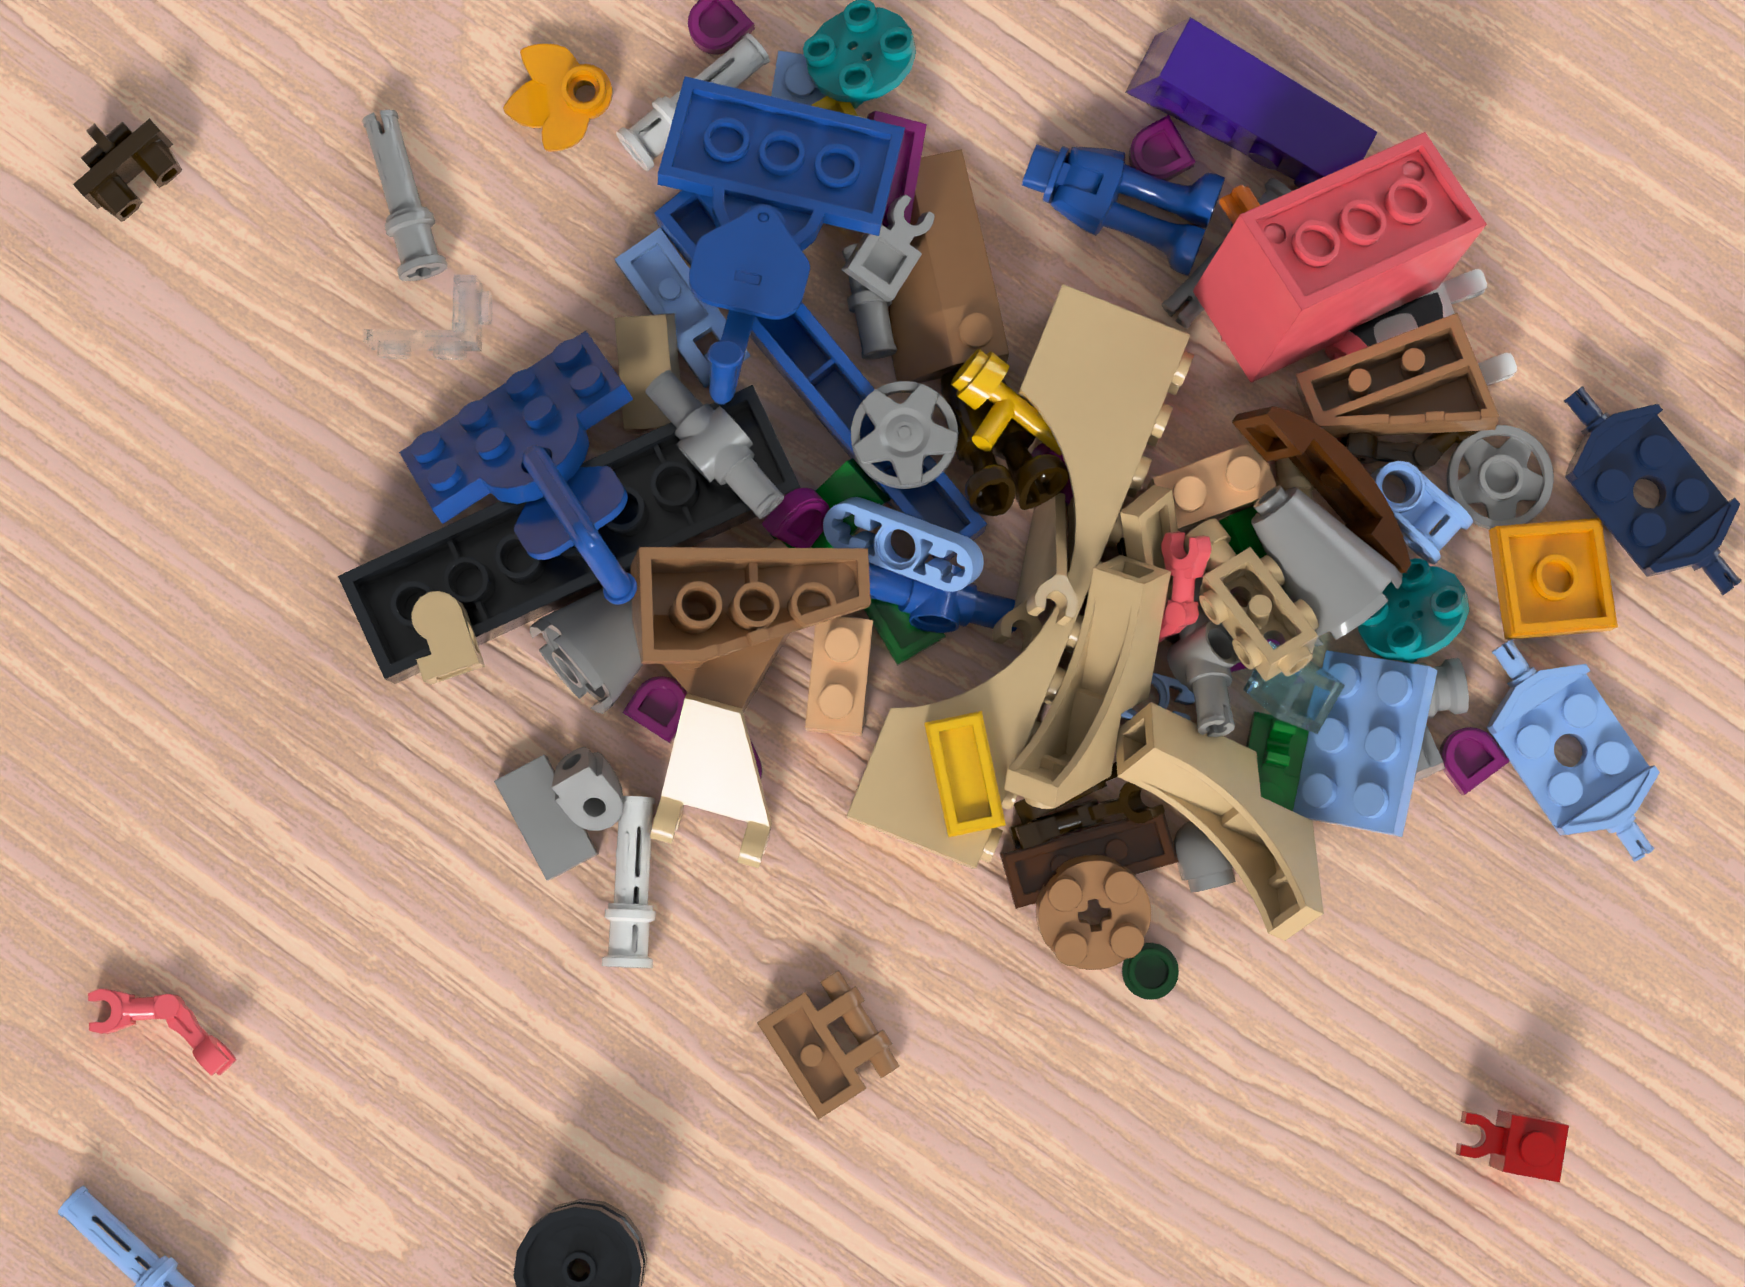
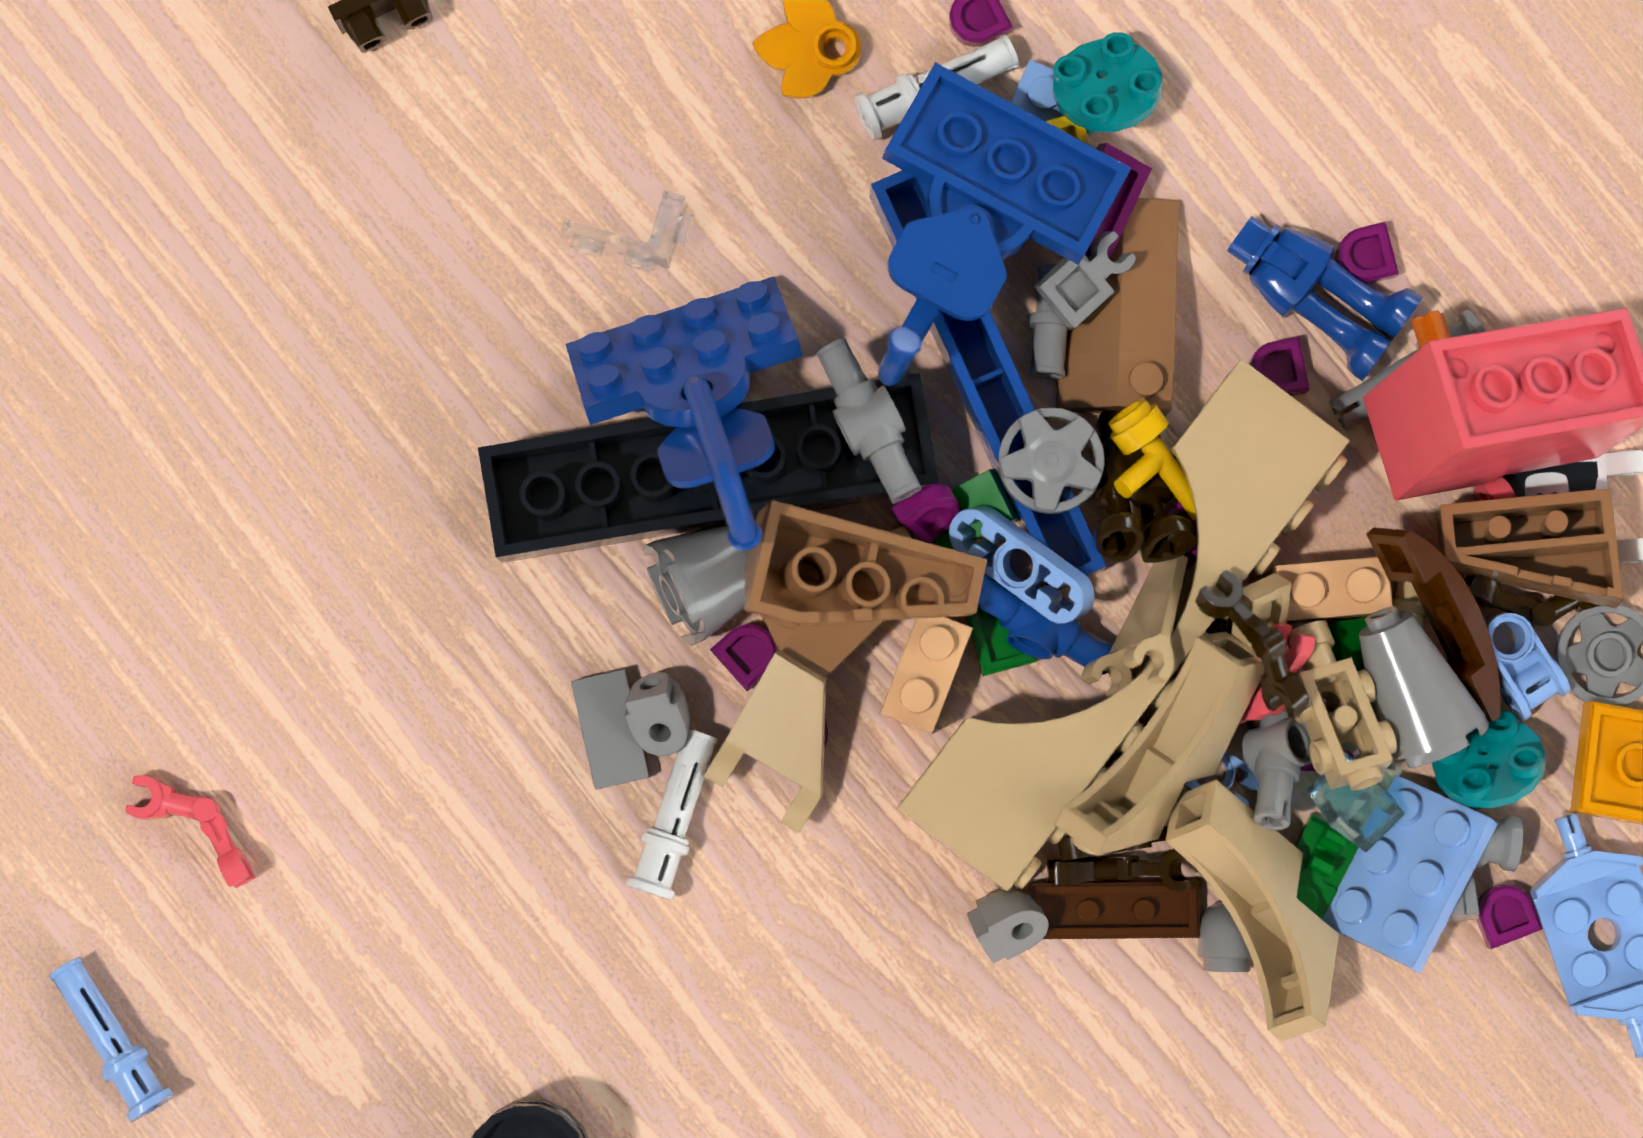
camera: 15 degrees right, 0 degrees up
(408, 220) = (634, 126): light grey pin -> none
(449, 636) = (569, 534): tan leg -> none
(644, 352) = (824, 315): tan tile -> none
(664, 287) = (862, 261): light blue plate -> none
(812, 1052) = (802, 1023): medium nougat plate -> none
(964, 774) = (1021, 799): yellow tile -> none
(987, 900) = (1007, 923): none -> light grey piece
(1068, 892) = (1123, 990): medium nougat plate -> none
(1107, 280) = (1283, 365): none -> magenta tile
(1151, 972) = (1144, 1034): dark green plate -> none
(1164, 554) = (1267, 642): none -> dark brown piece
(1247, 104) = (1464, 234): dark purple wedge -> none

